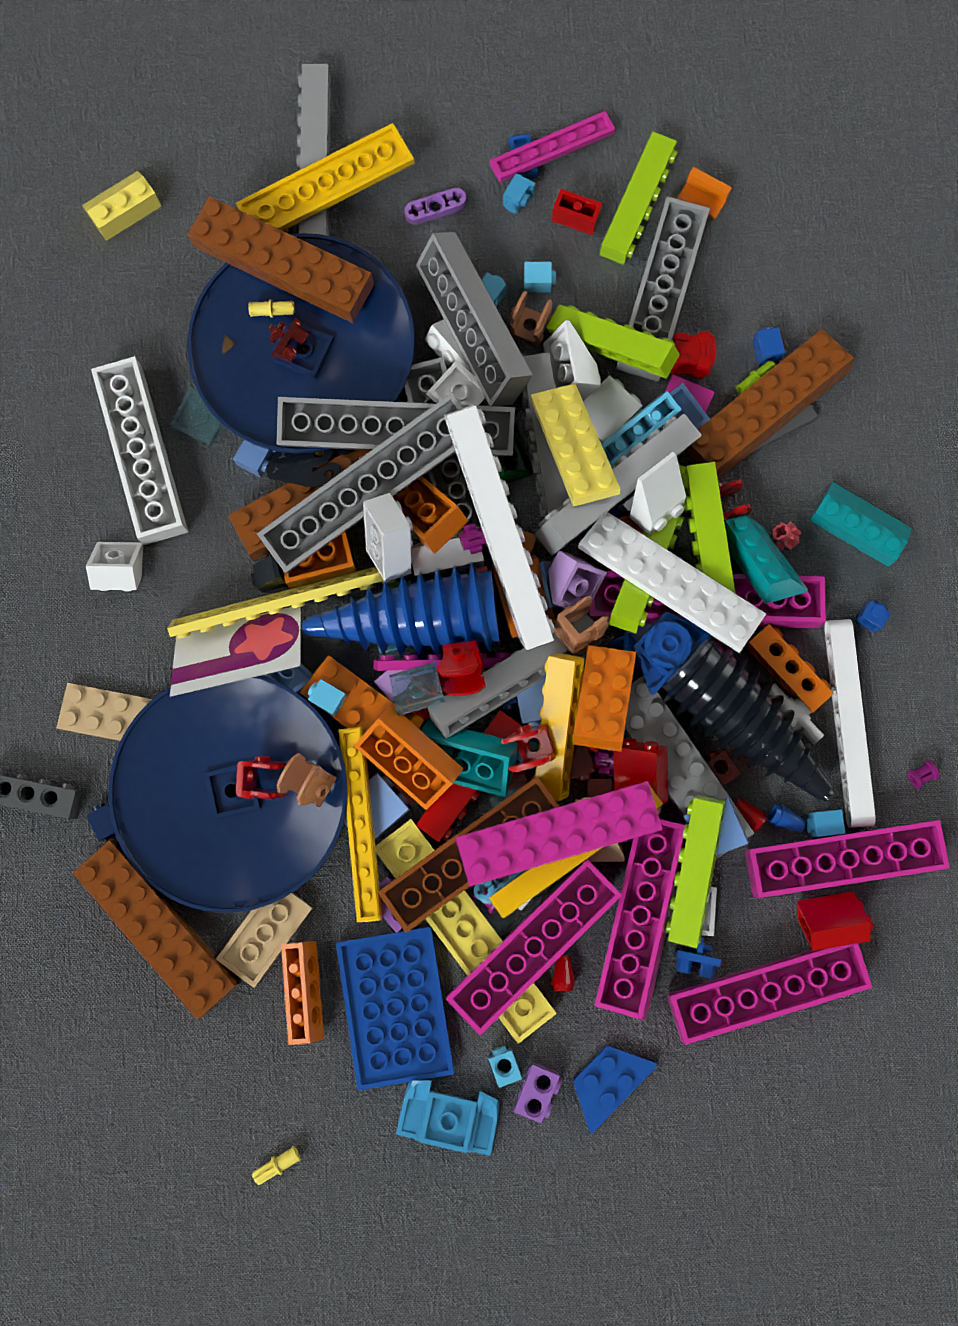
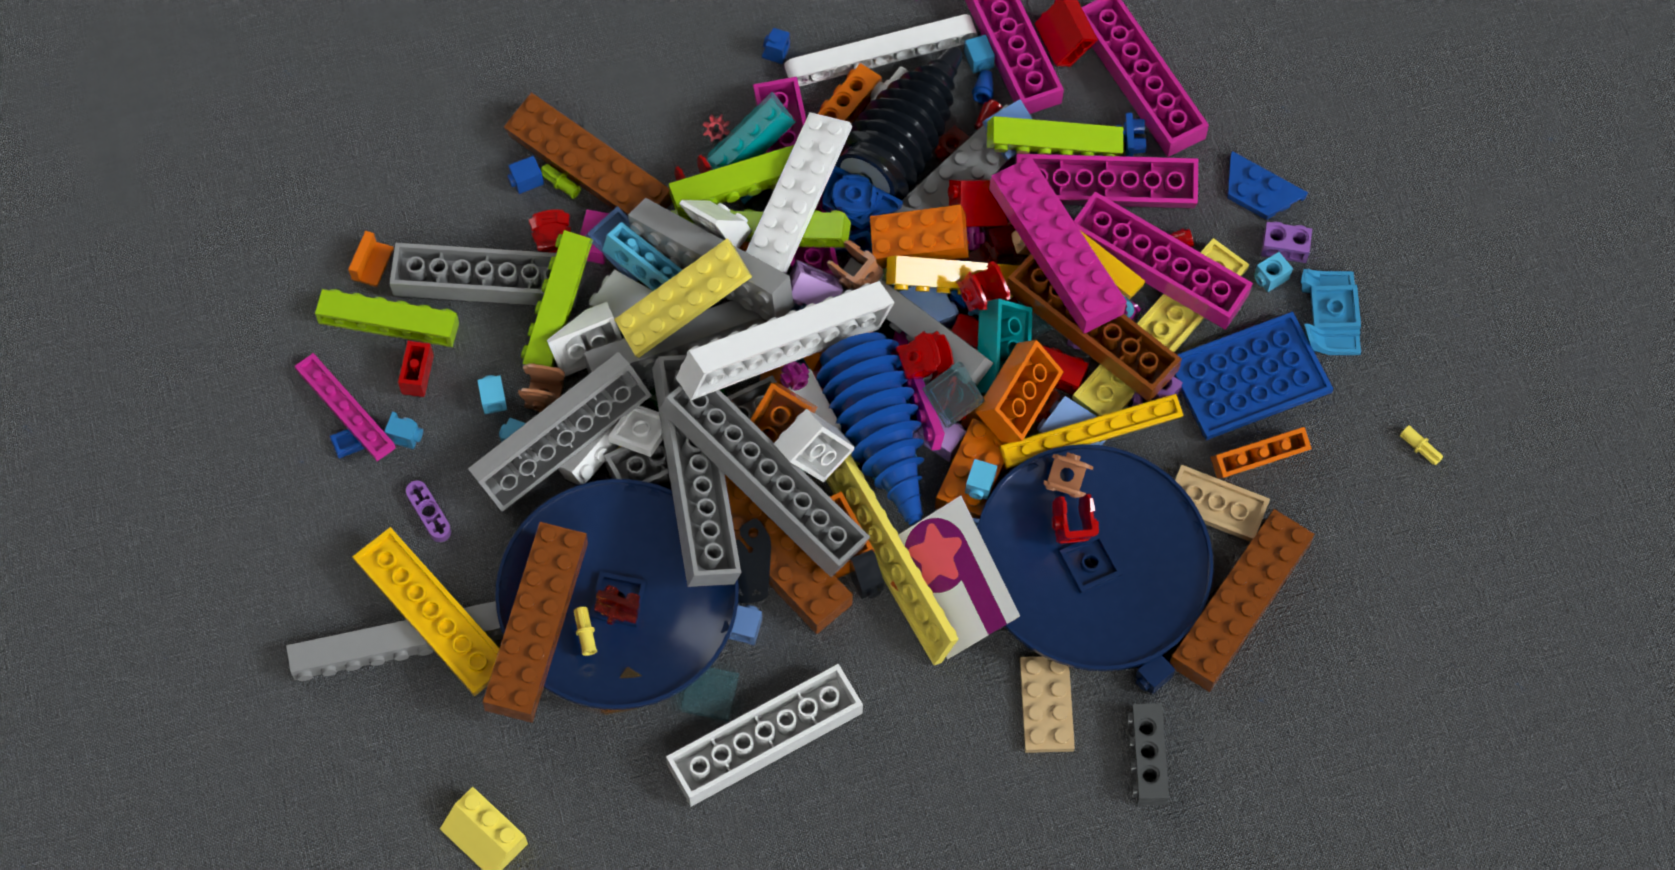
camera: 105 degrees left, 15 degrees down
(115, 566) = (891, 731): white slope -> none
(861, 524) = (688, 69): teal slope -> none

